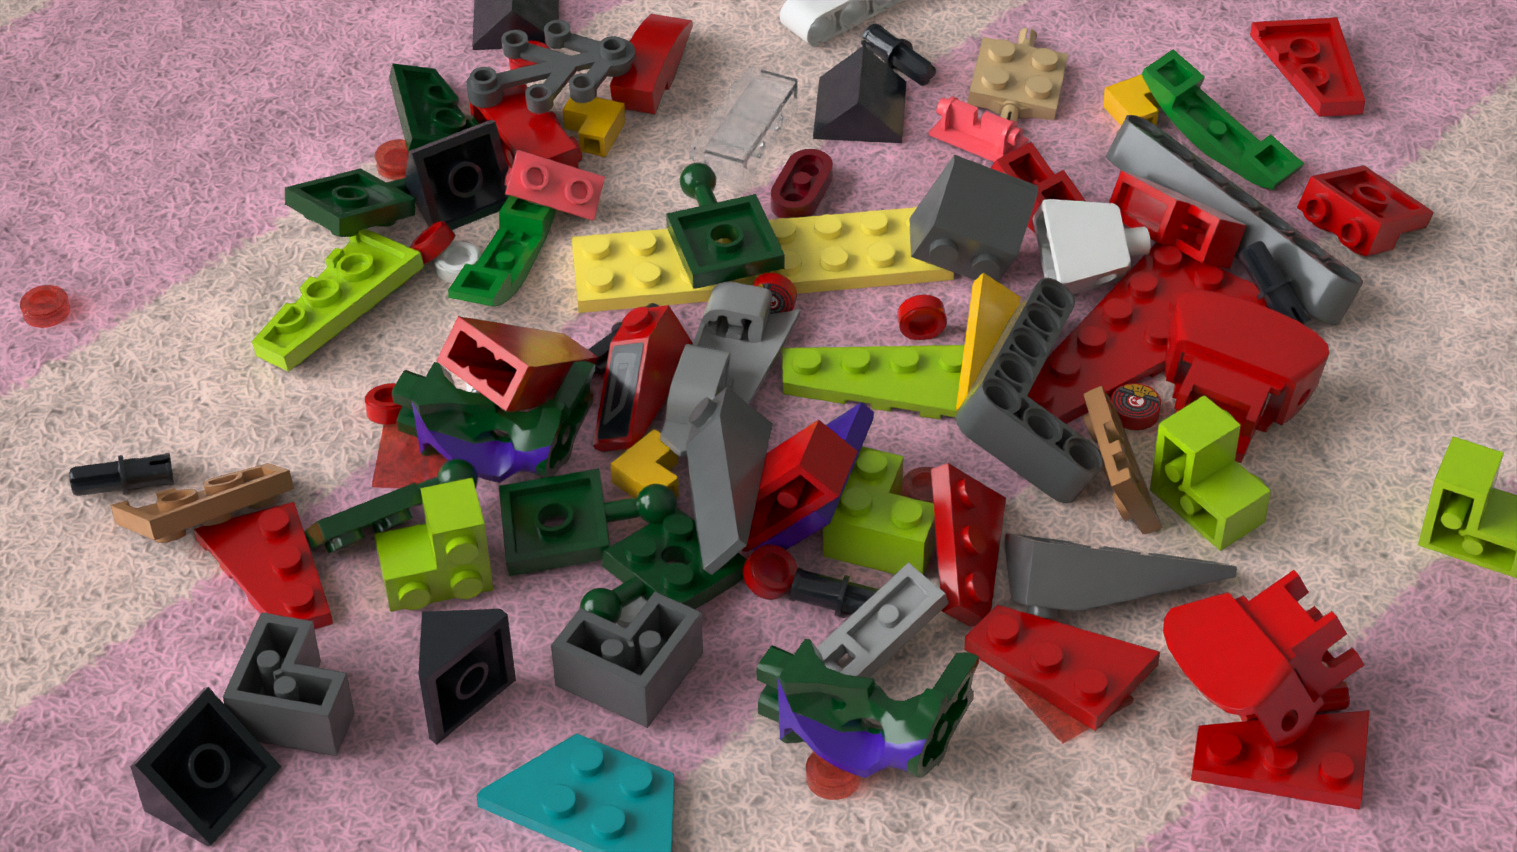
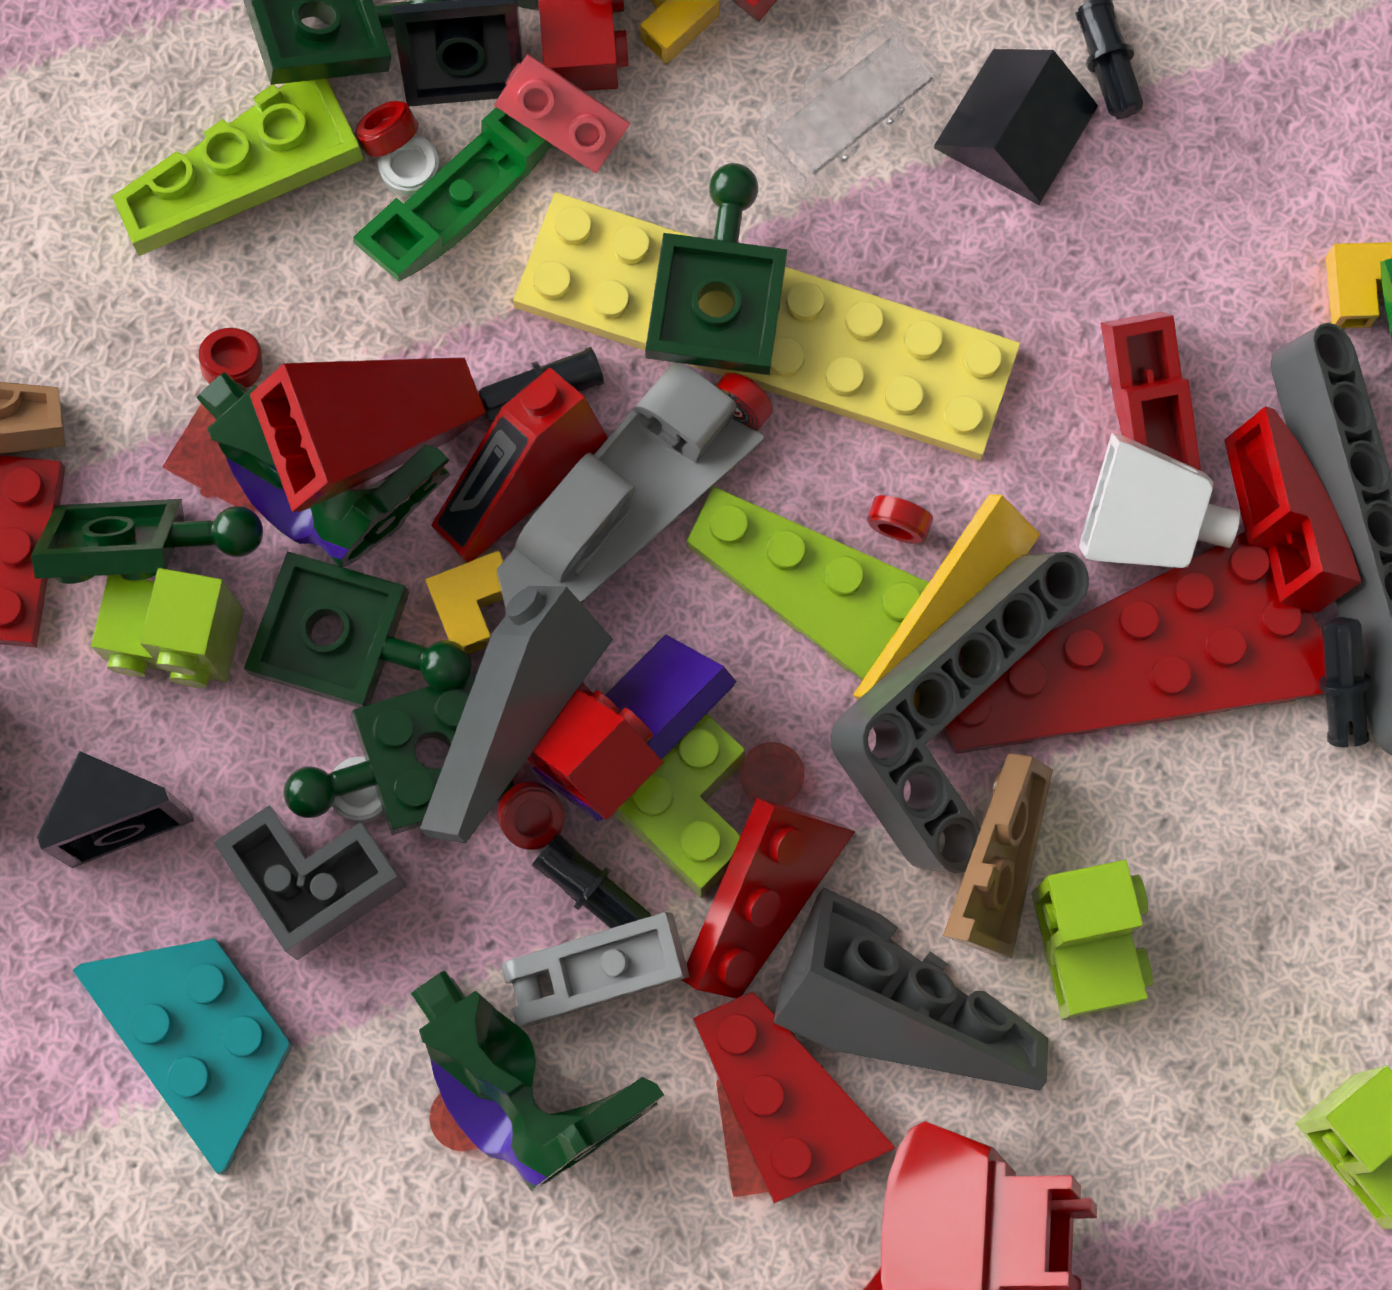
camera: 25 degrees right, 30 degrees up
(795, 190) = (869, 233): dark red plate -> none
(972, 220) = (1022, 421): dark grey slope -> none
(985, 137) = (1134, 242): coral hinge -> none
(1017, 78) = (1238, 168): tan plate -> none
(1137, 405) = (1082, 767): tile -> none
(1238, 357) = (1218, 795): red piece -> none

